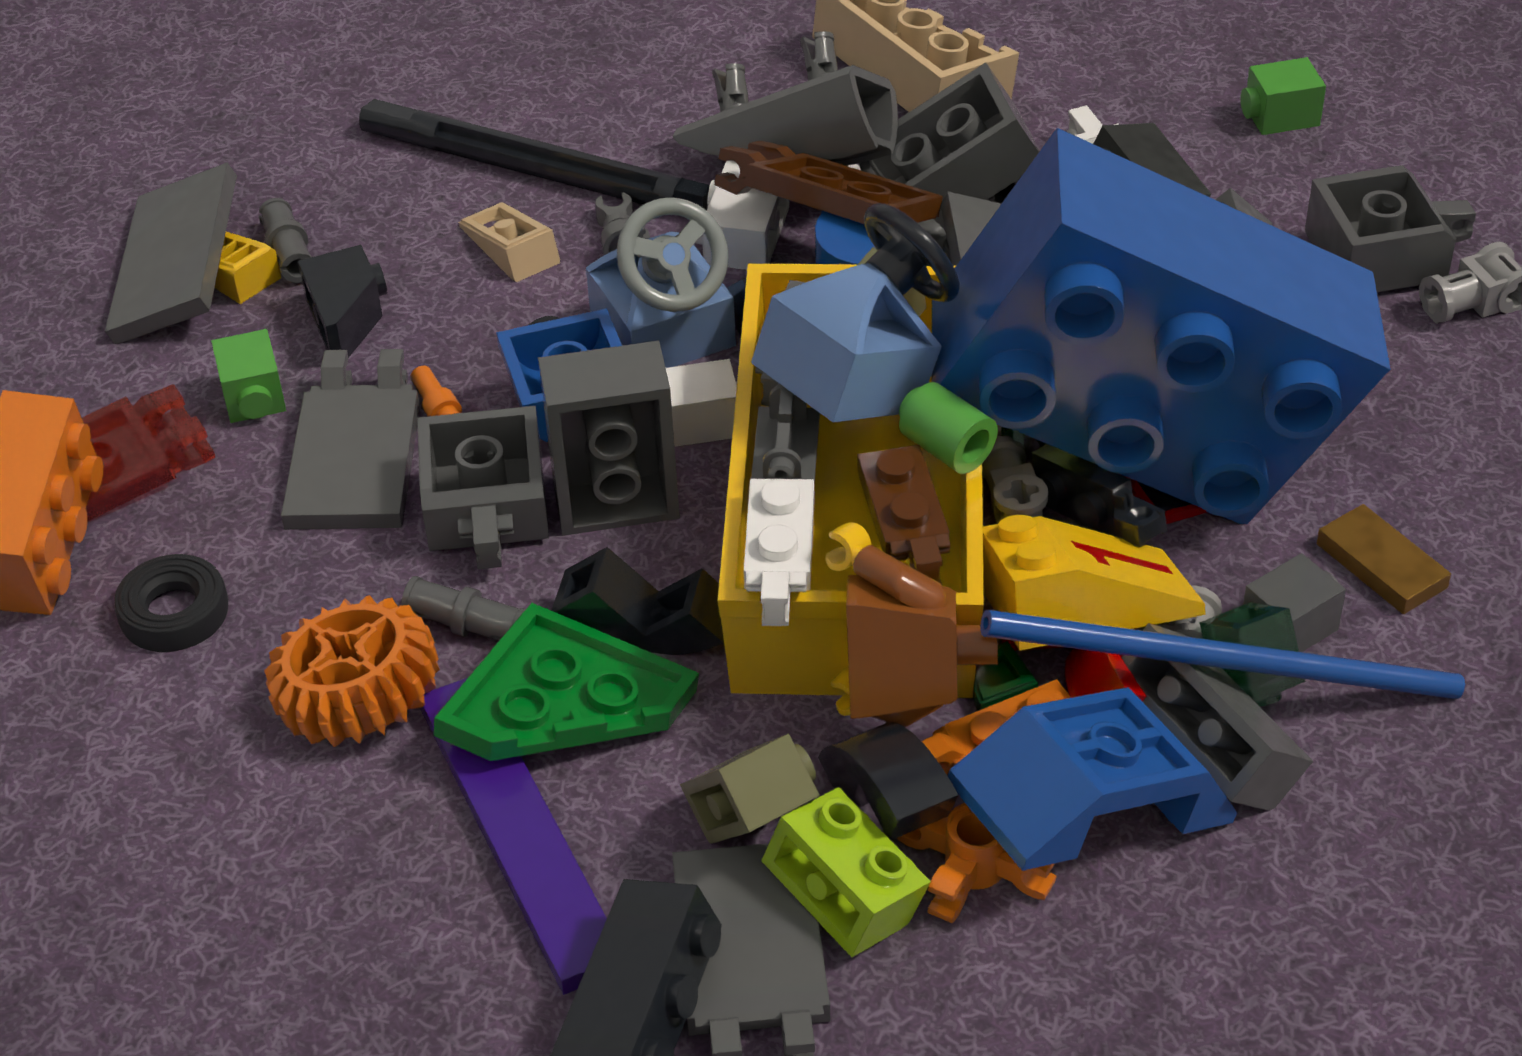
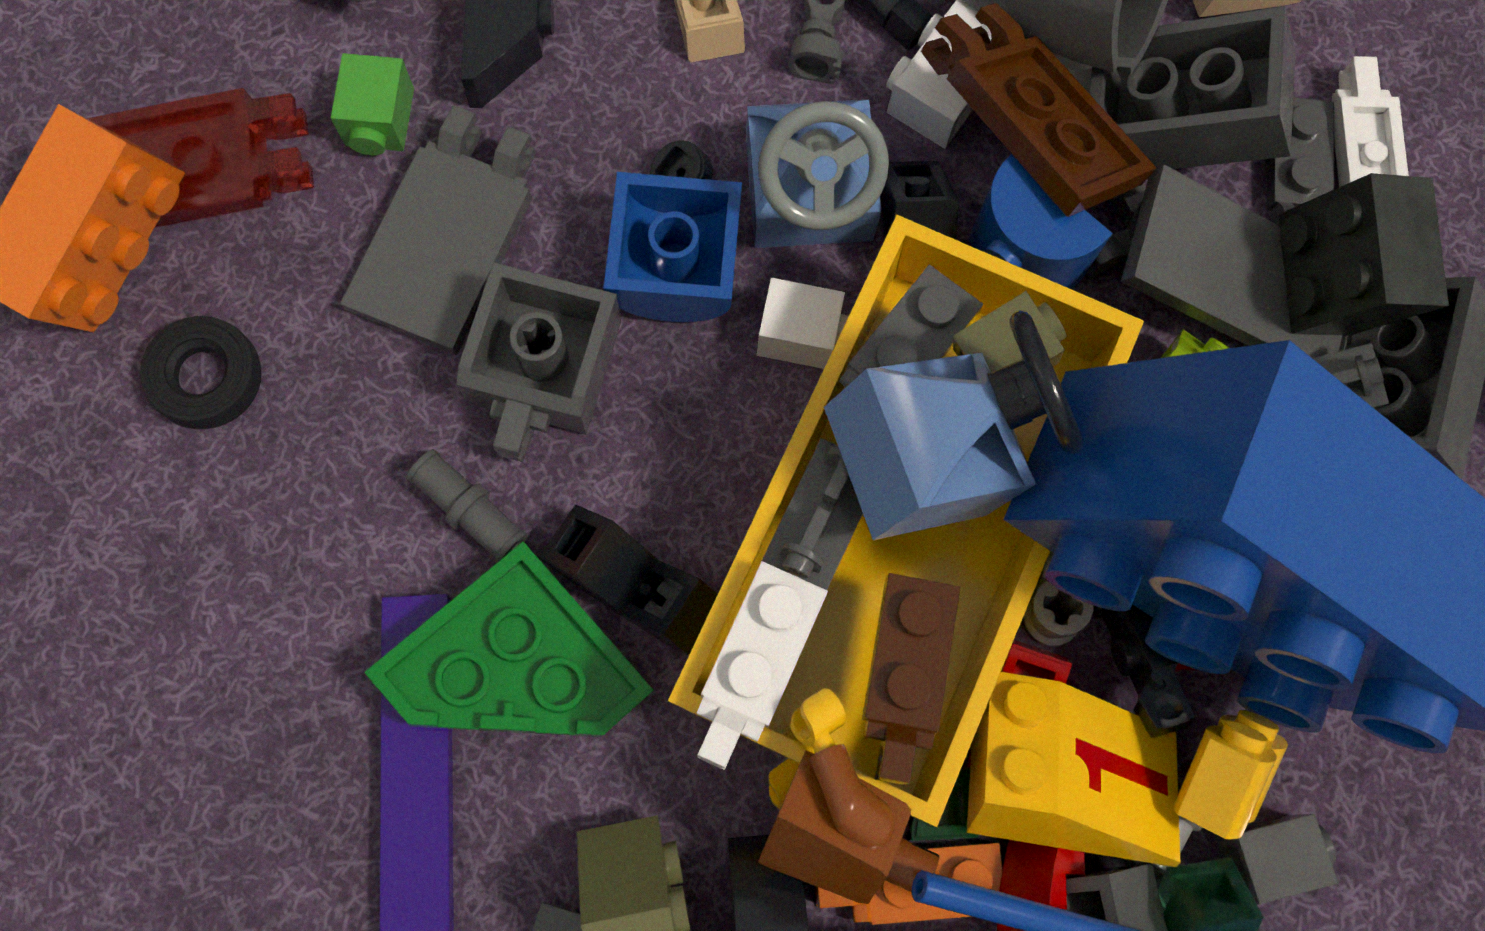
camera: 15 degrees right, 30 degrees up
(352, 670) = (291, 543): orange gear -> none
(436, 399) = (548, 216): orange bar -> none
(610, 437) = (667, 371): dark grey brick -> none
(947, 427) = (998, 575): bright green brick -> none
(1215, 538) = (1231, 774): none -> yellow brick
(1383, 558) = (1400, 817): pearl gold tile -> none

